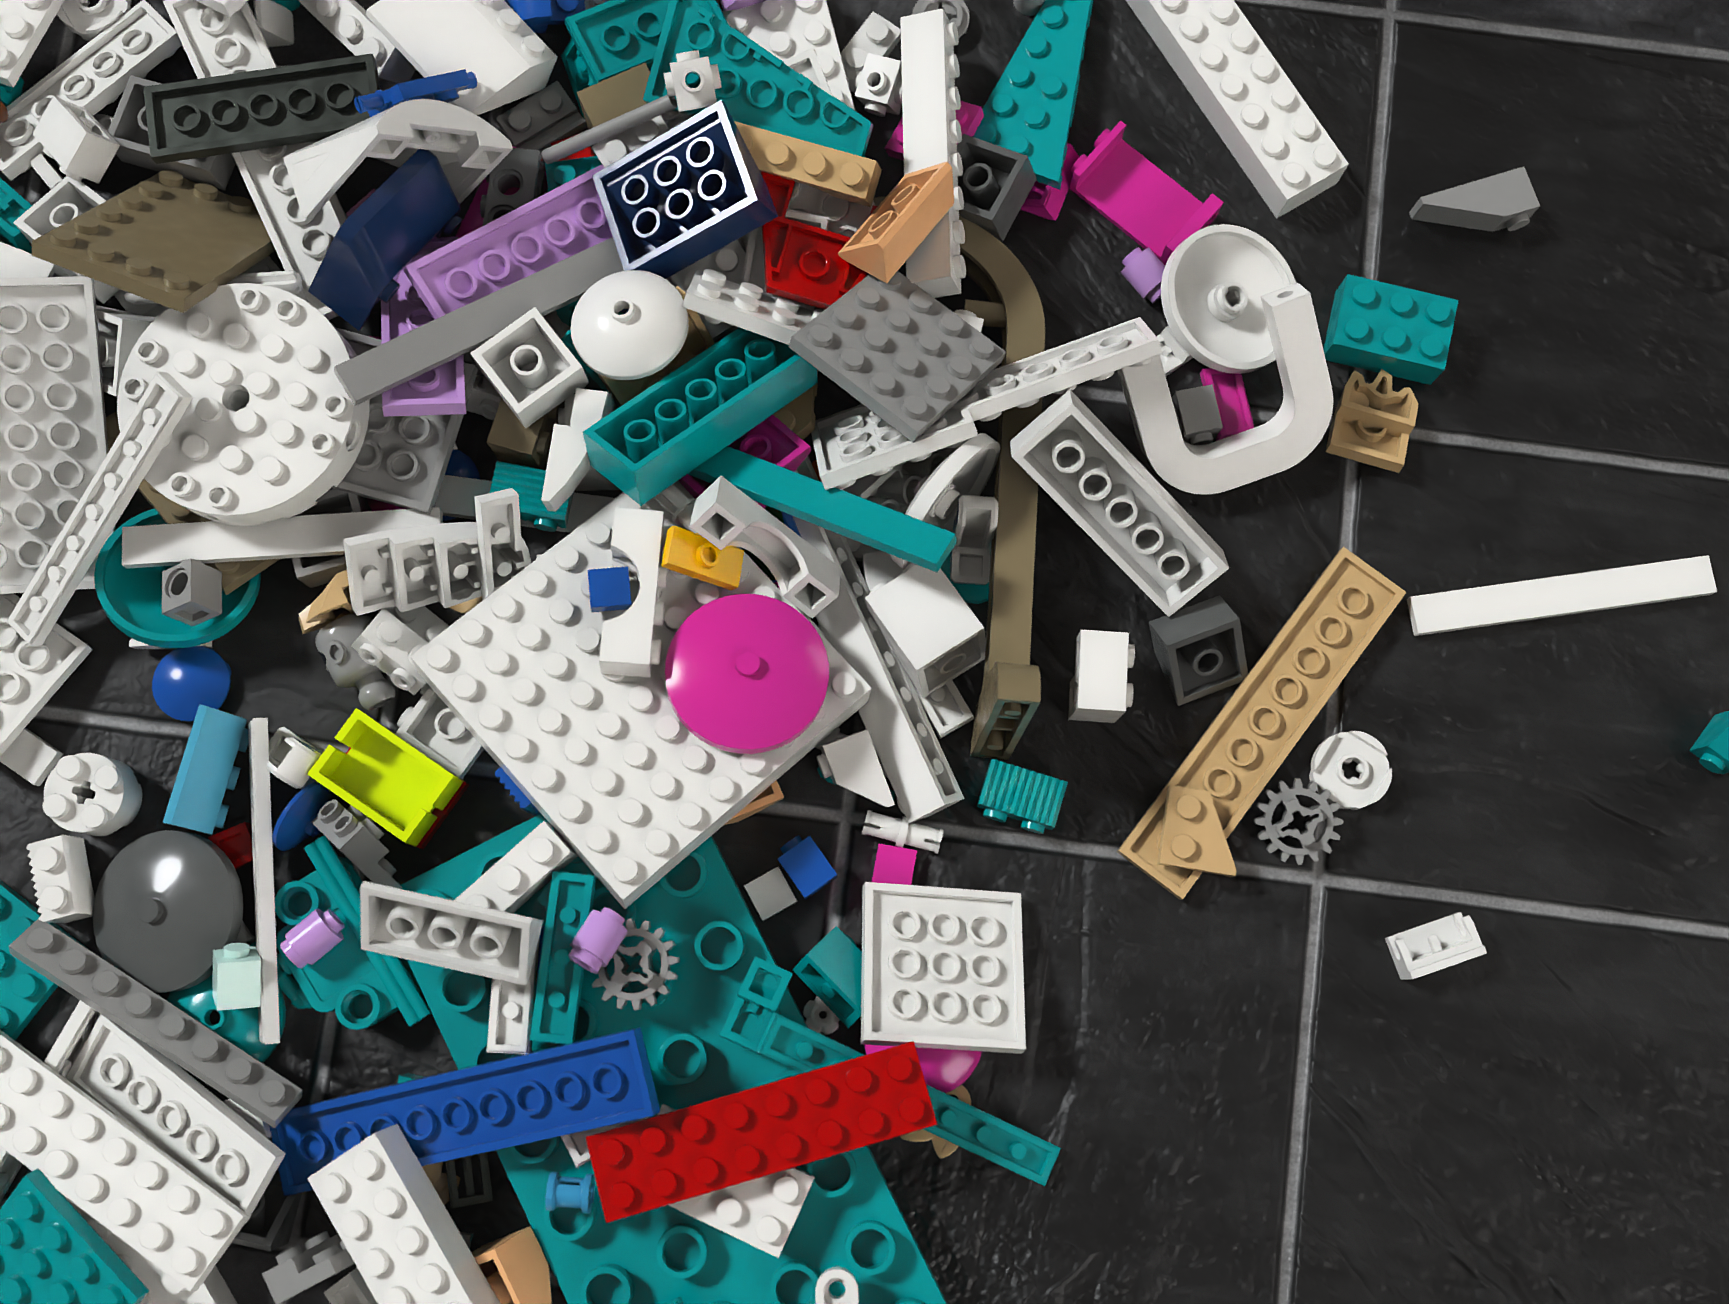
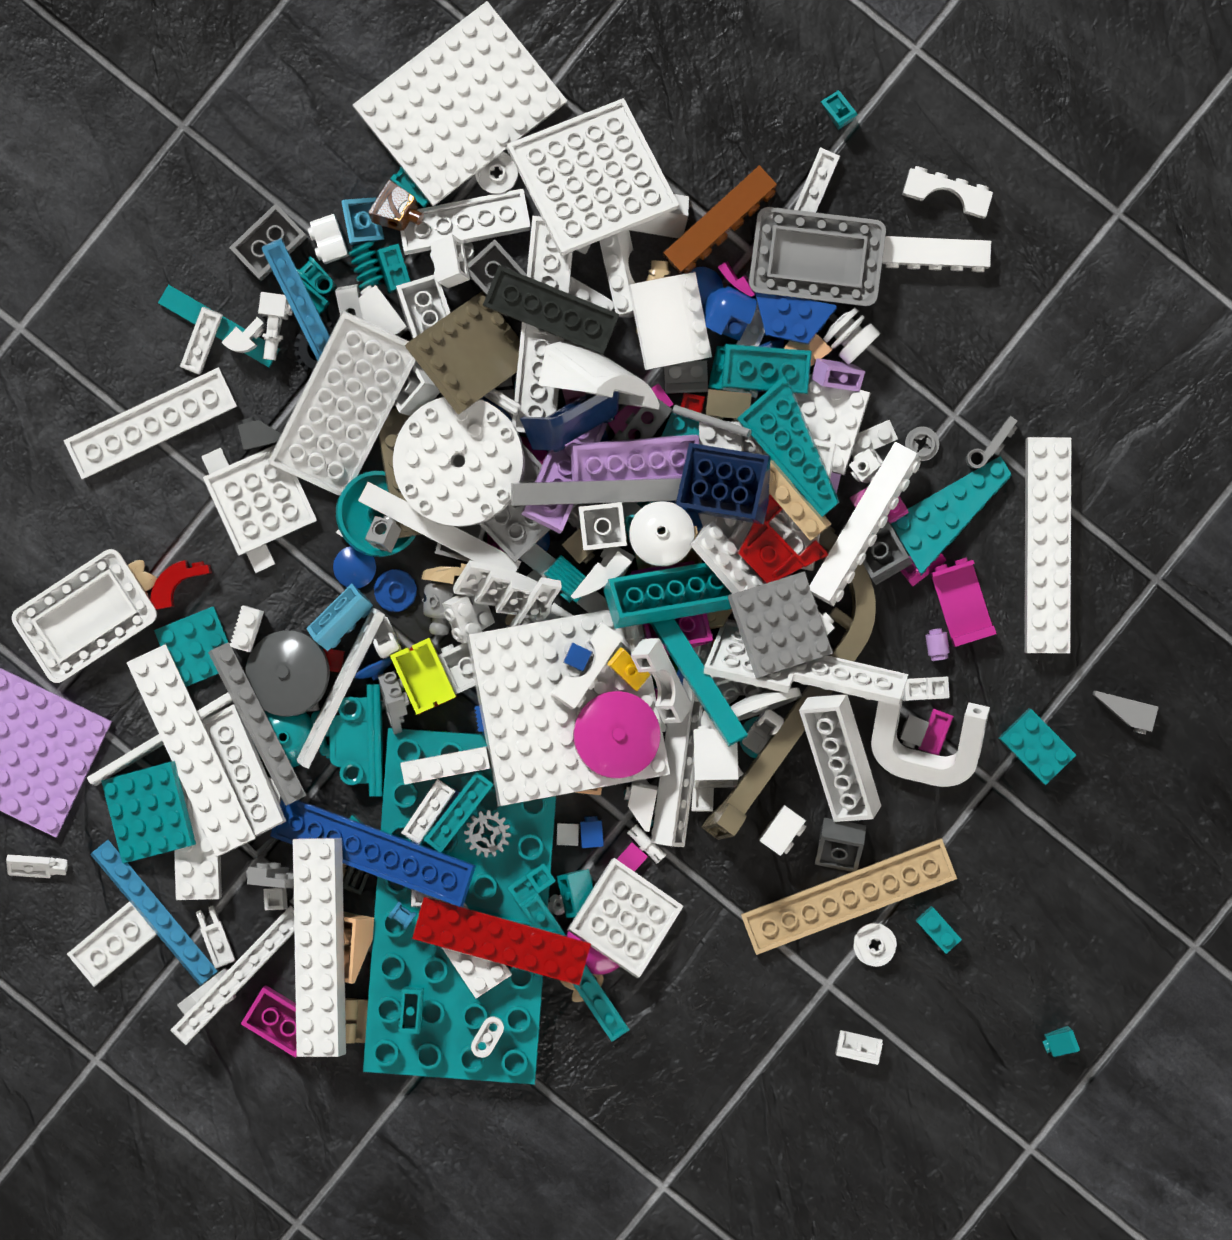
camera: 30 degrees right, 10 degrees up
(46, 171) = (425, 263): white tile -> none
(71, 788) = (294, 596): white brick -> none
(100, 508) = (363, 472): white tile -> none
(236, 977) = (305, 727): light aqua brick -> none
(277, 681) = (395, 590): none -> blue tile
(313, 937) = (349, 730): lavender brick -> none
(437, 87) = (629, 355): blue plate -> none
(448, 933) = (416, 774): white slope -> none
(598, 939) = (479, 815): lavender brick -> none
(688, 97) = (763, 433): white brick -> none
(901, 222) = (820, 559): light nougat slope -> none
(1022, 796) = (712, 861): teal brick -> none
(1193, 833) = (779, 928): tan wing -> none
(1215, 299) = (966, 675): white dish -> none
(1316, 814) = (831, 962): light grey gear -> none
(1373, 422) = (998, 786): tan plate -> none
(1432, 685) = (938, 929): none -> teal brick
(1561, 595) = (1033, 925): white tile -> none

